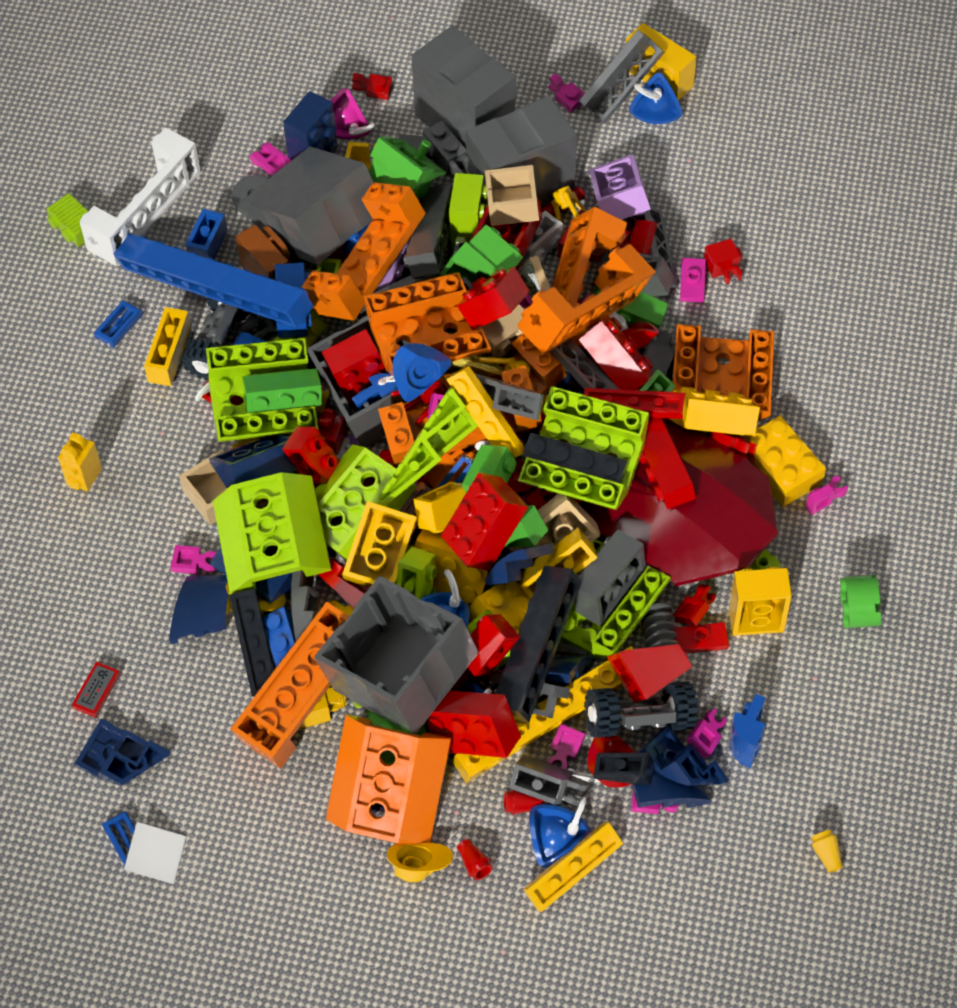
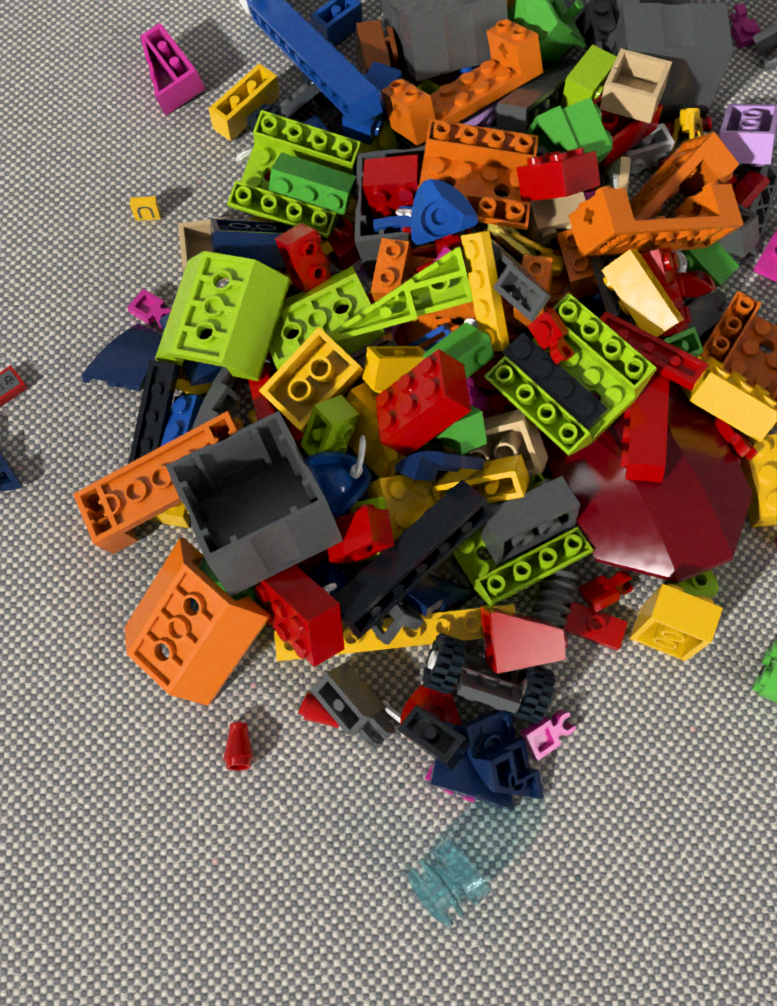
camera: 25 degrees right, 10 degrees up
(79, 462) = (101, 171): yellow hinge -> none
(81, 345) = (170, 70): none -> dark pink wedge
(121, 326) = (218, 68): blue tile -> none
(133, 477) = (145, 208): none -> yellow tile
(418, 860) = (181, 721): yellow piece -> none
(553, 424) = (550, 333): none -> red plate
(556, 831) = (333, 764): blue hat -> none
(566, 744) = (397, 672): dark pink plate -> none
(573, 866) = (331, 809): yellow plate -> none
(605, 362) = (641, 293): none -> yellow brick
(690, 867) = (448, 882): none -> clear light blue wheel
(748, 731) = (584, 759): blue brick -> none
(827, 849) = (608, 936): yellow cone -> none

